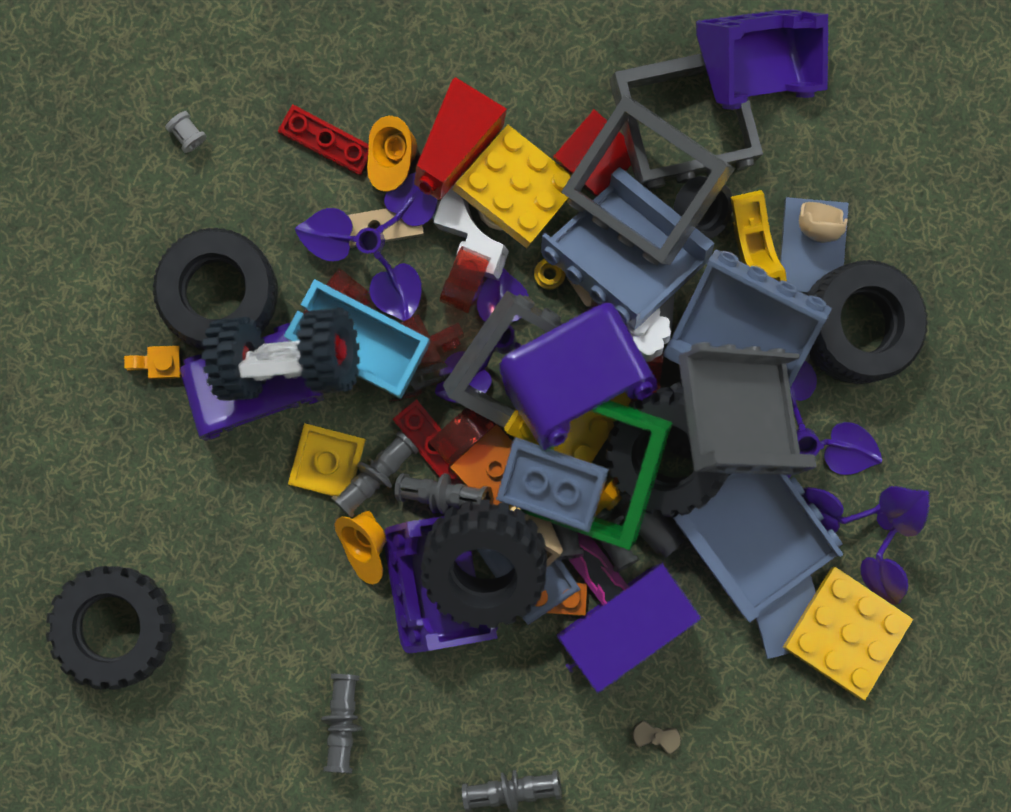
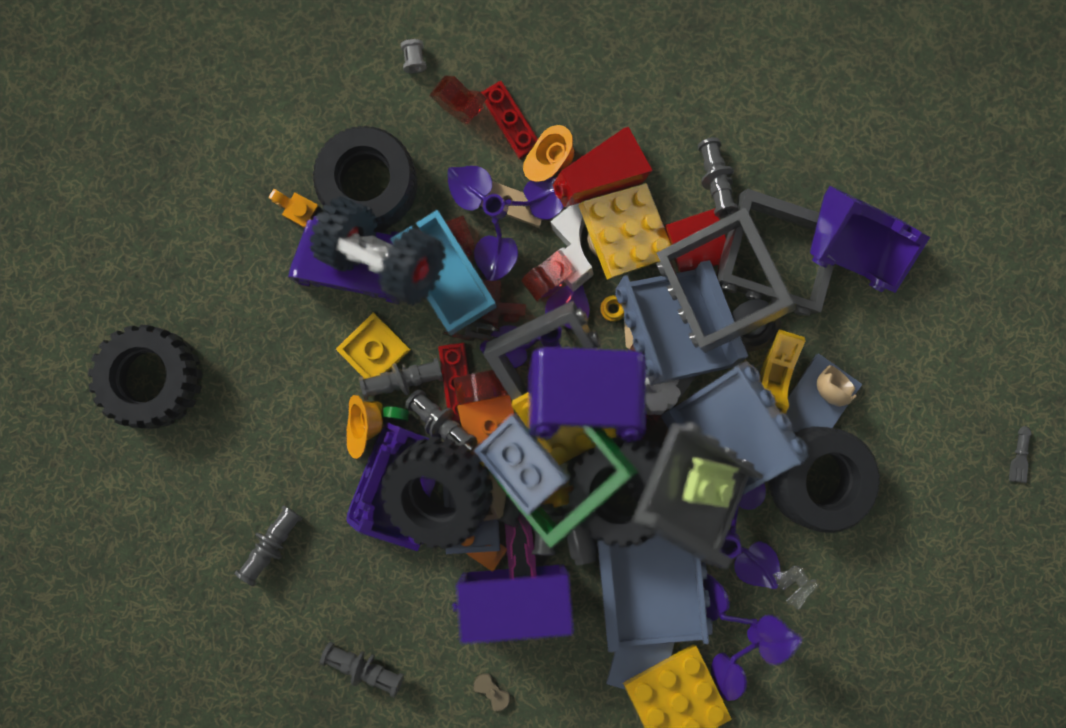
camera: 30 degrees right, 0 degrees up
(260, 150) = (457, 99): none -> clear red brick
(390, 513) = (395, 414): none -> green tile
(577, 76) = (717, 178): none -> dark grey piece
(750, 391) = (710, 483): none -> yellowish green plate
(893, 435) = (795, 573): none -> clear piece

